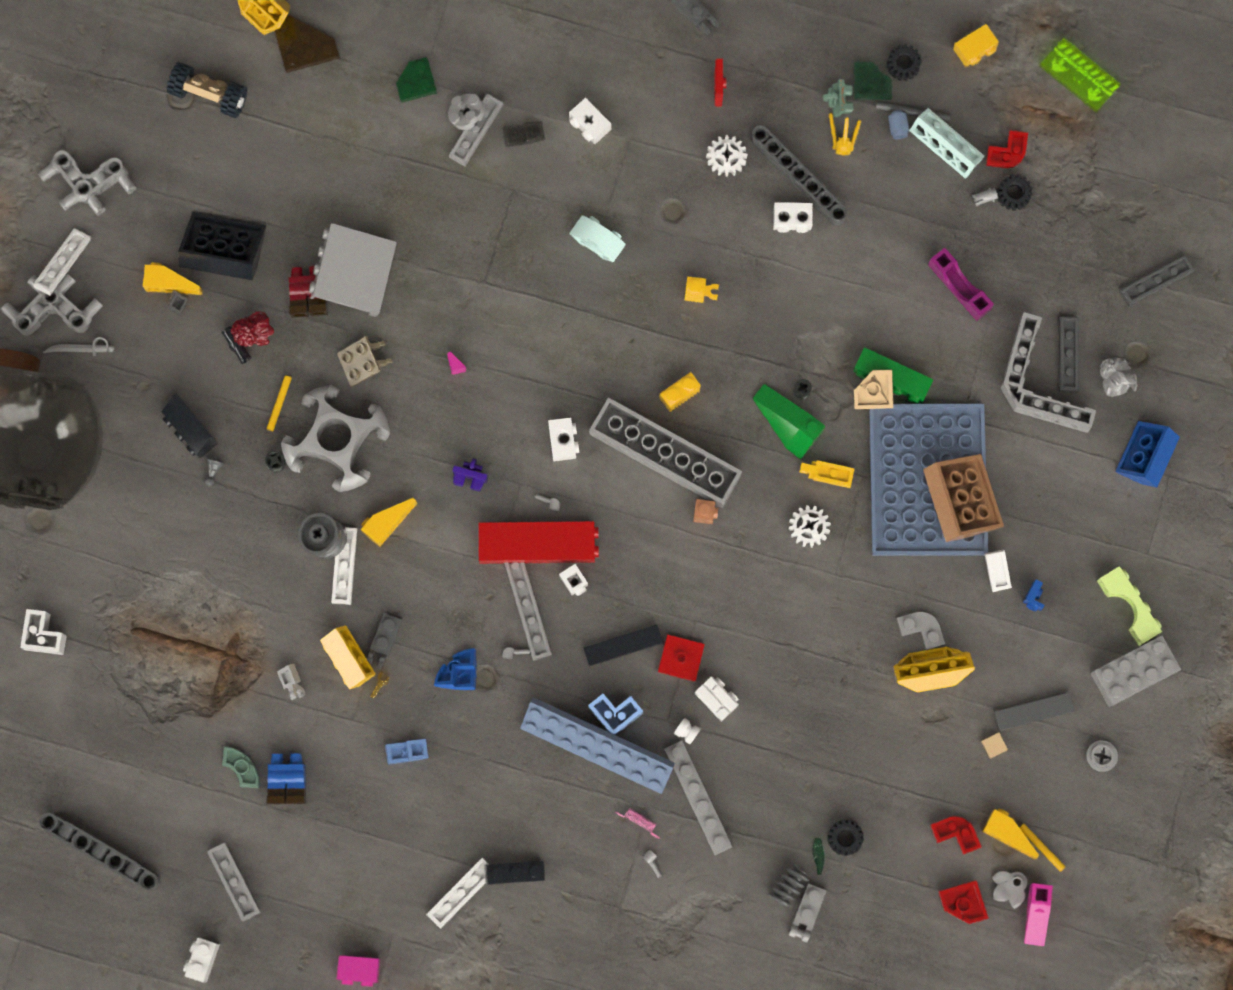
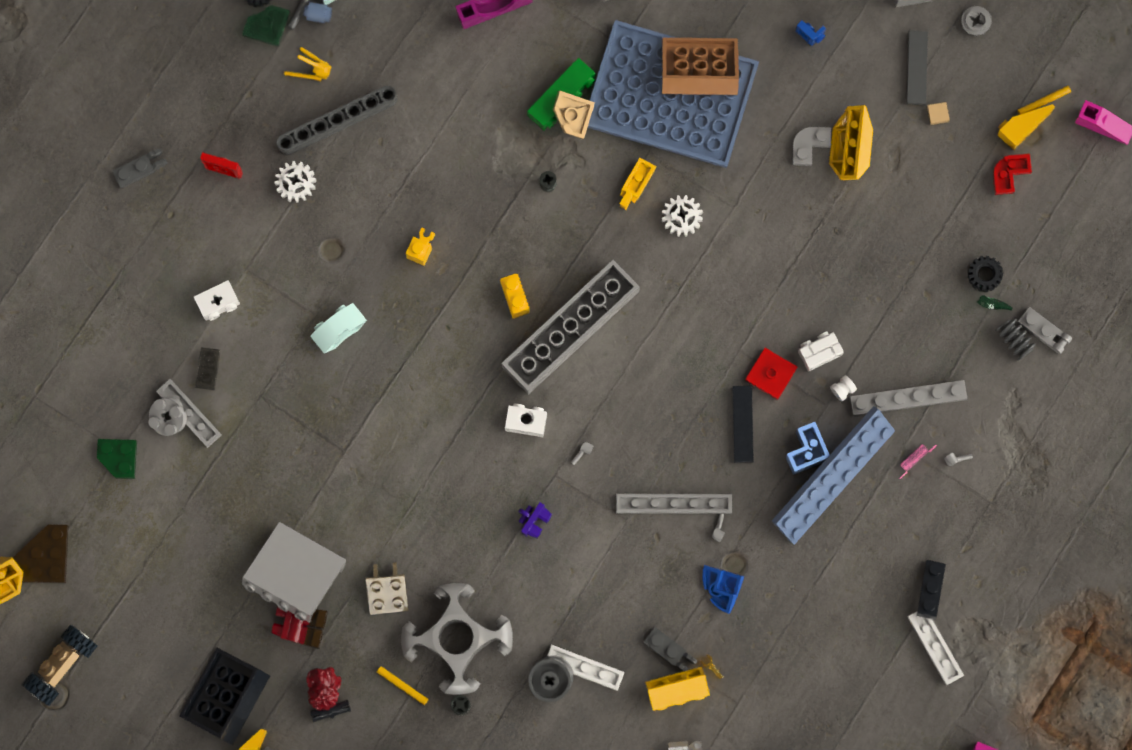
camera: 70 degrees left, 0 degrees up
(383, 524) = (556, 617): yellow slope -> none
(406, 751) = (784, 659): medium blue slope -> none
(455, 364) = (418, 502): dark pink slope -> none
(537, 542) = (619, 474): red brick -> none
(571, 574) = (660, 447): white brick -> none
(705, 511) = (638, 307): nougat brick -> none
(791, 423) = (577, 202): green wedge -> none
(792, 211) = (371, 137): white brick -> none
(836, 98) = (272, 60): sand green hips -> none
(964, 902) = (1075, 185): red plate -> none
(998, 570) = (776, 57): white tile -> none
(1007, 889) = (1073, 144): light grey plate -> none

